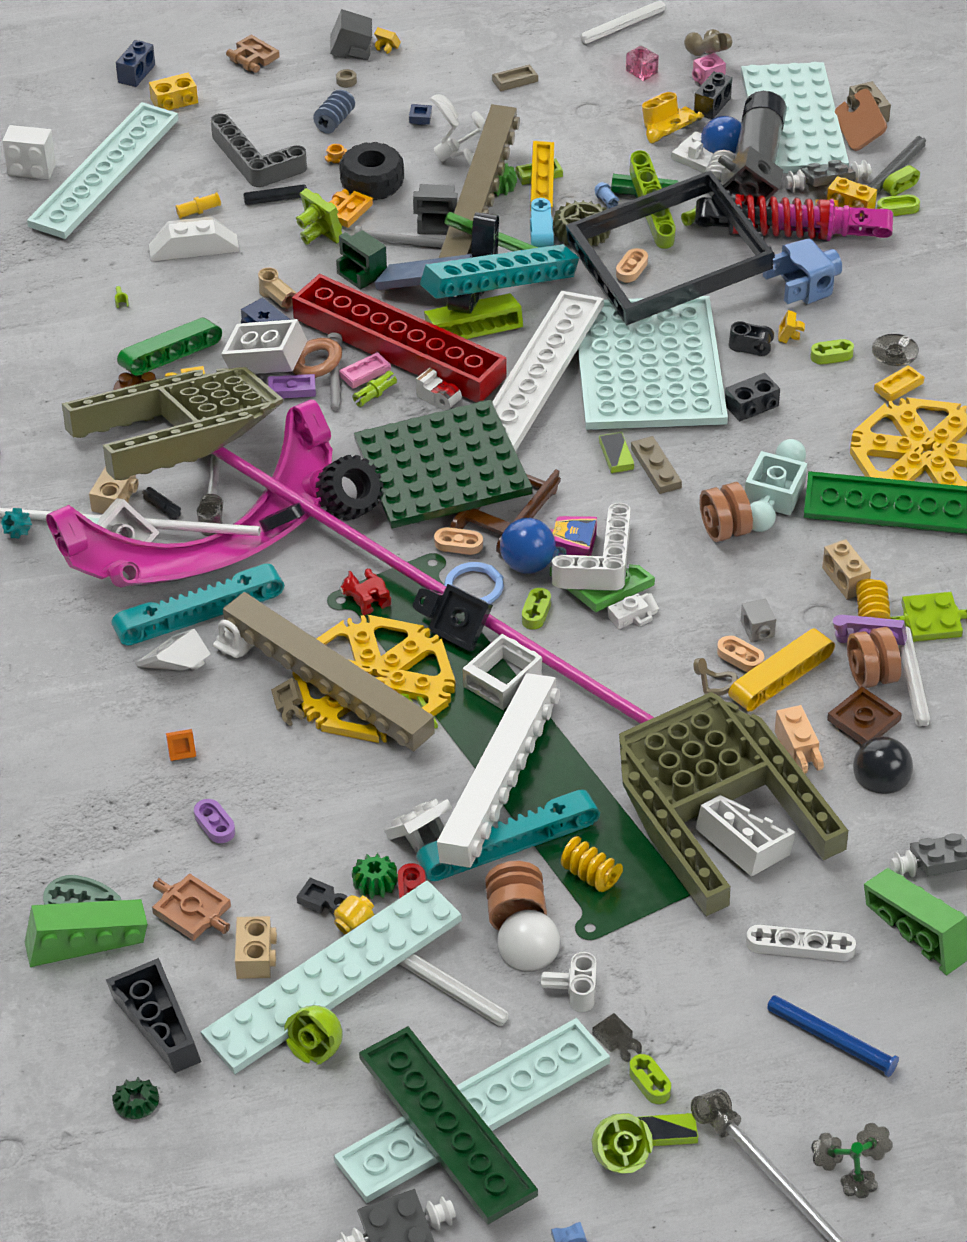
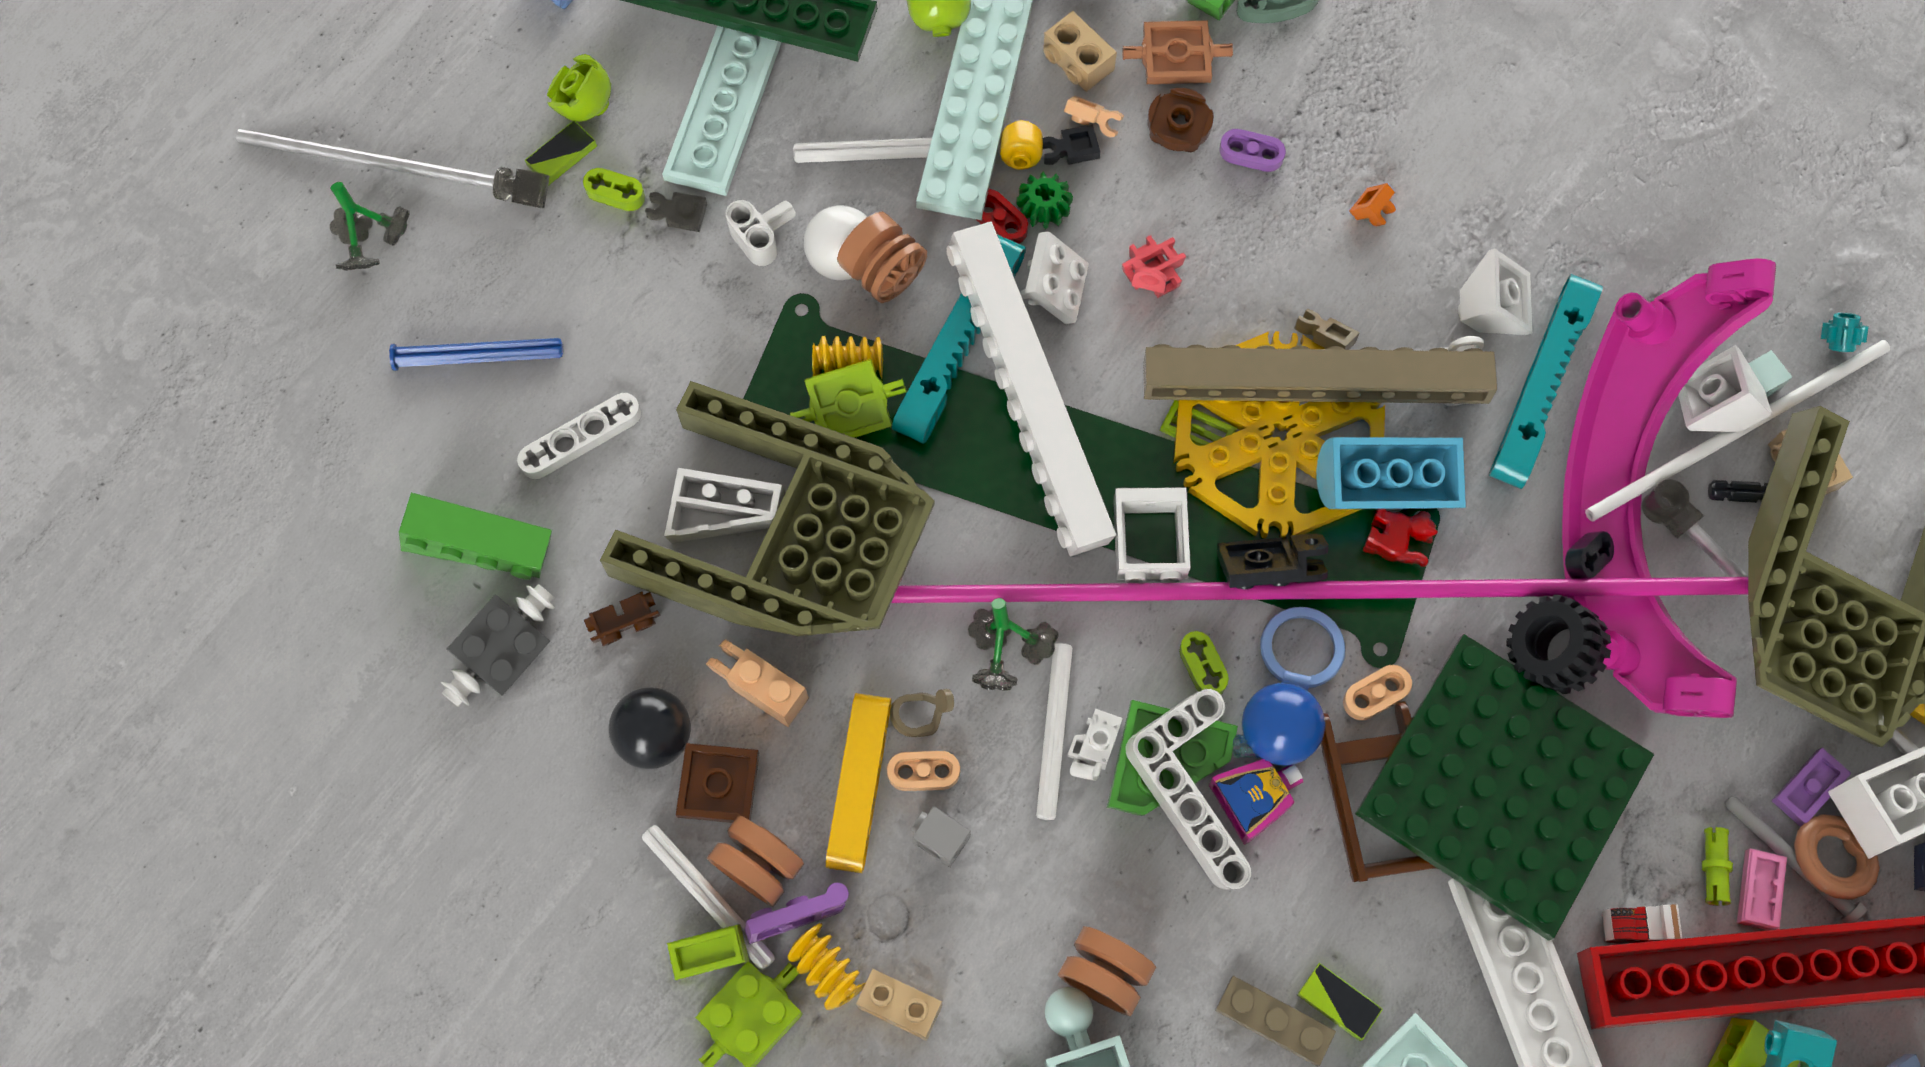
camera: 140 degrees right, 25 degrees up
(236, 880) = (1180, 136): none -> reddish brown plate
(289, 908) = (1087, 111): none -> light nougat plate
(345, 602) = (1391, 473): none -> medium azure brick
(361, 795) = (1157, 272): none -> coral piece
(614, 836) = (850, 400): none -> lime plate
(621, 666) = (992, 629): none -> clear smoke plant
(648, 630) = (1054, 732): none -> white axle
(860, 819) = (610, 625): none -> reddish brown hinge
(933, 649) = (708, 952): none -> lime tile

